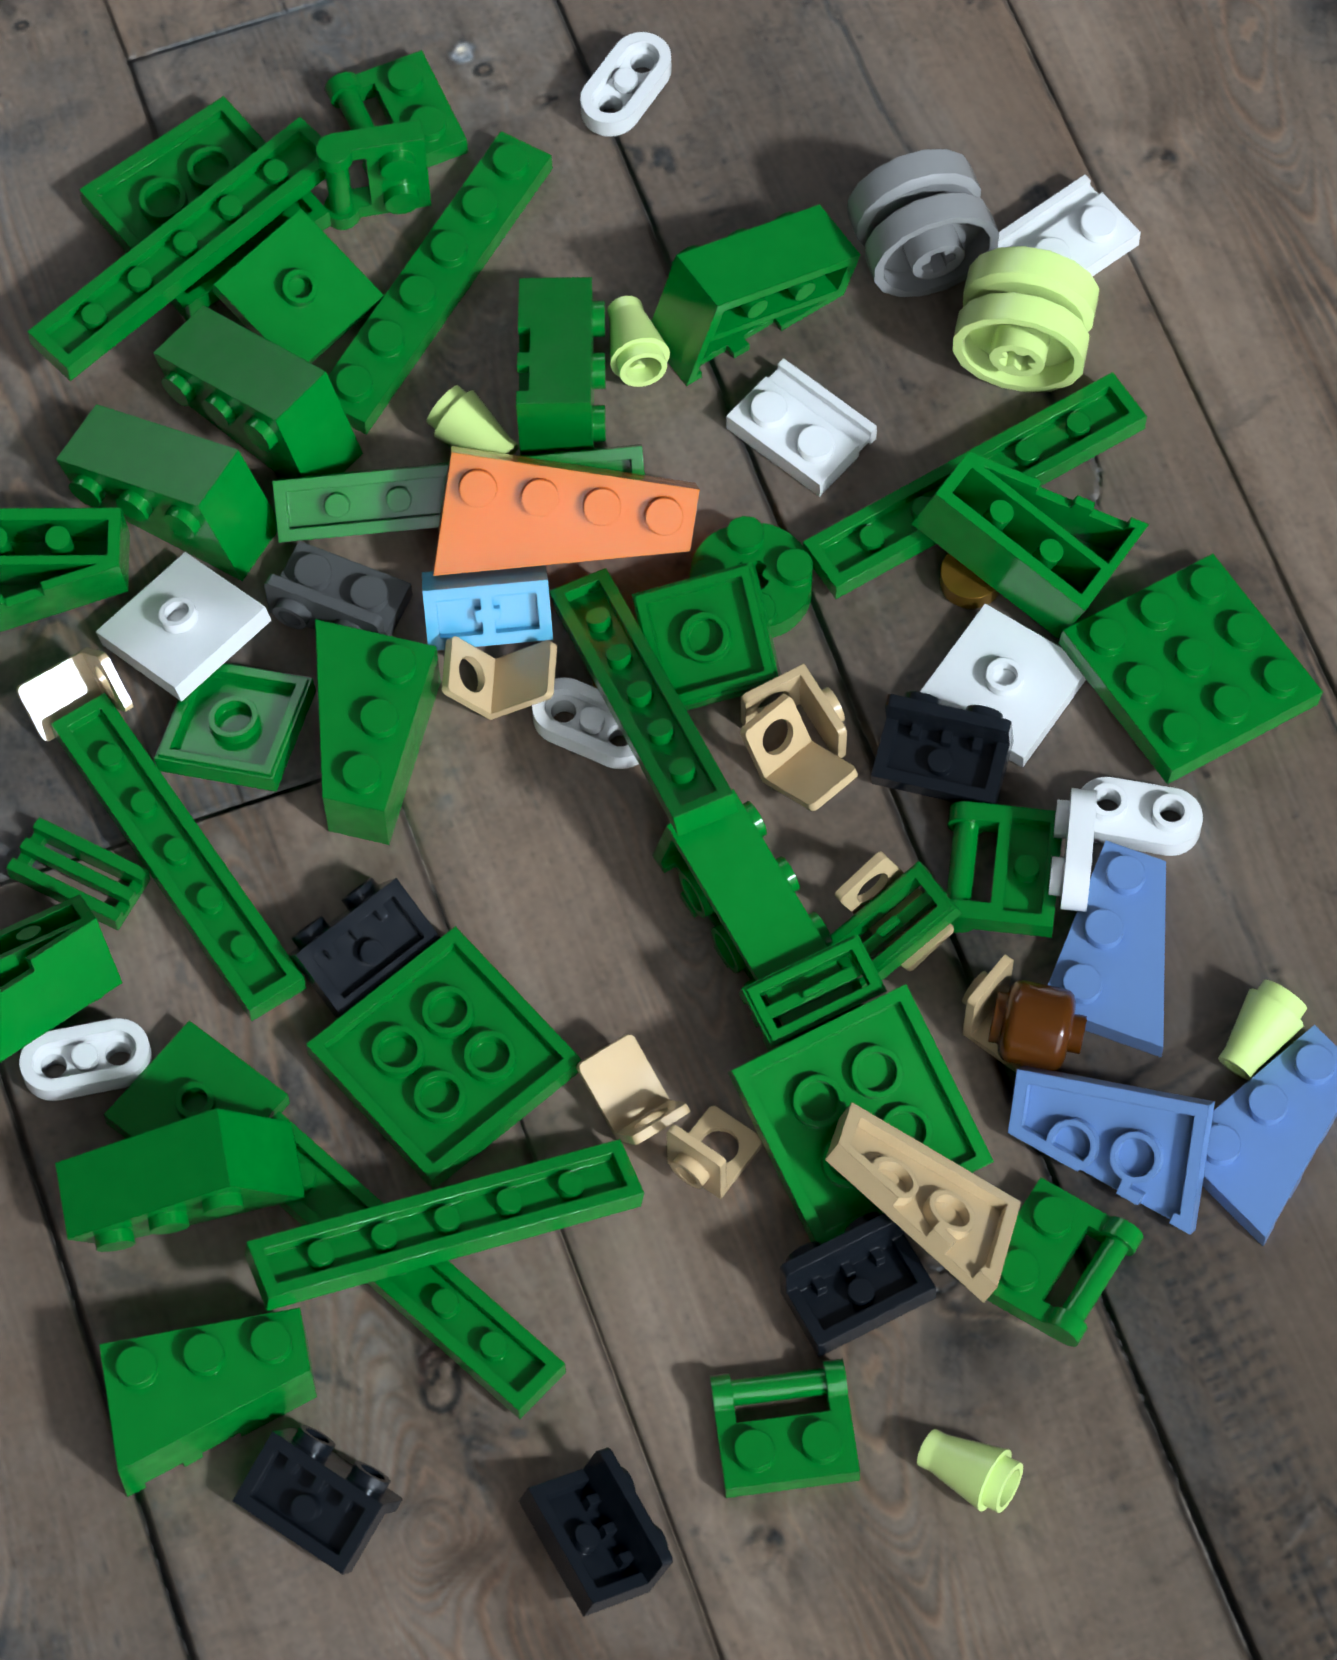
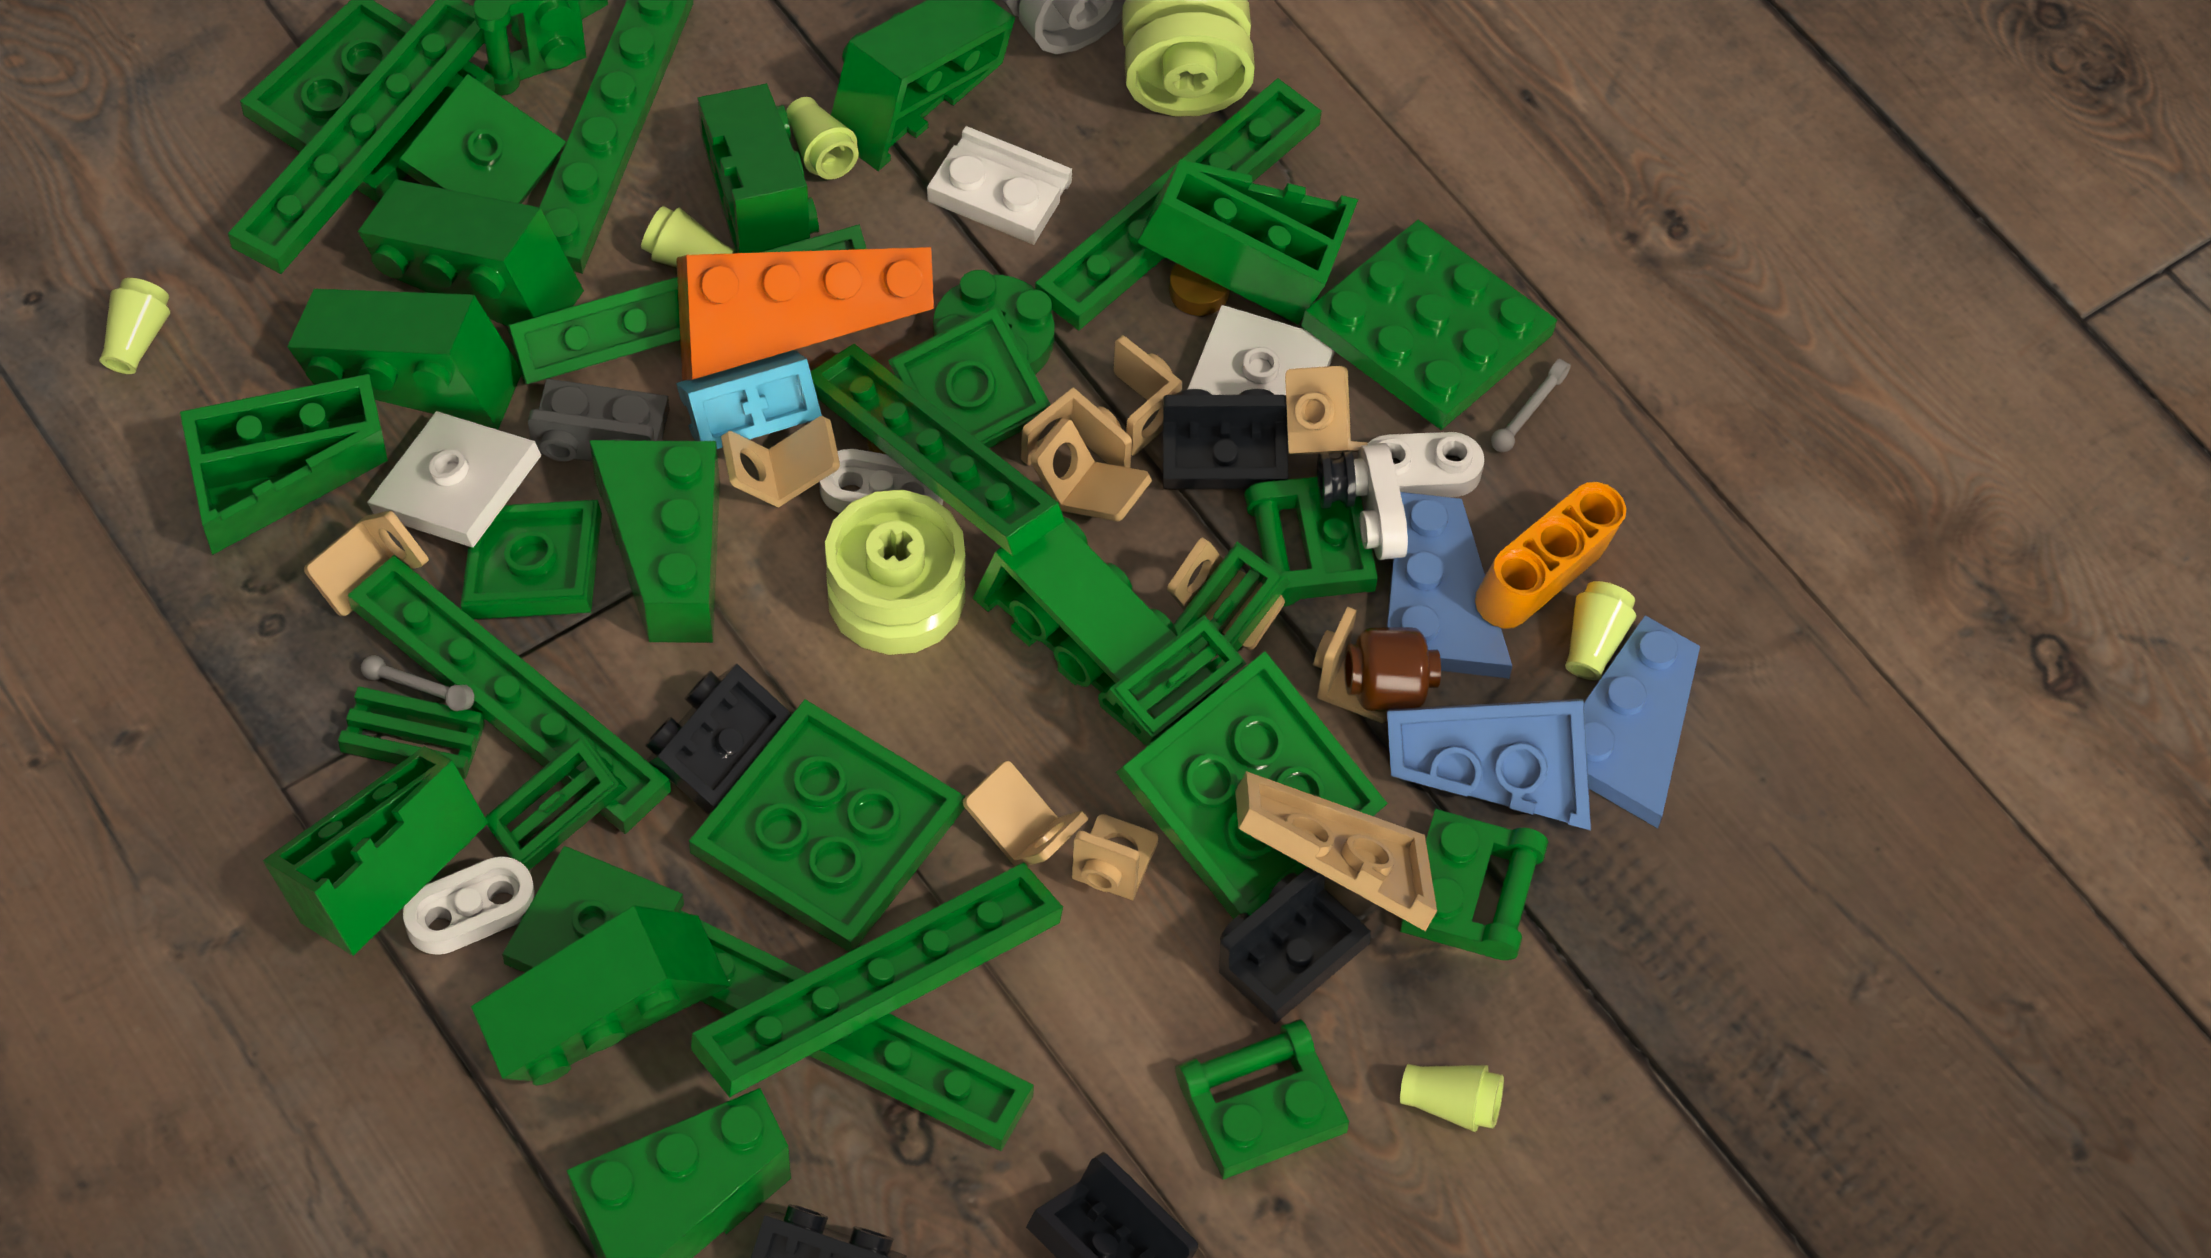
camera: 20 degrees left, 5 degrees down
(126, 850) = (457, 696): none -> light grey hinge
(201, 998) = (570, 821): none -> green tile
(578, 816) = (895, 571): none -> yellowish green wheel
(893, 670) = (1152, 380): none -> tan bracket
(1037, 817) = (1336, 479): none -> black bush
(1038, 744) = (1318, 411): none -> tan bracket
(1231, 806) = (1503, 439): none -> light grey hinge
(1252, 922) = (1550, 555): none -> light orange beam

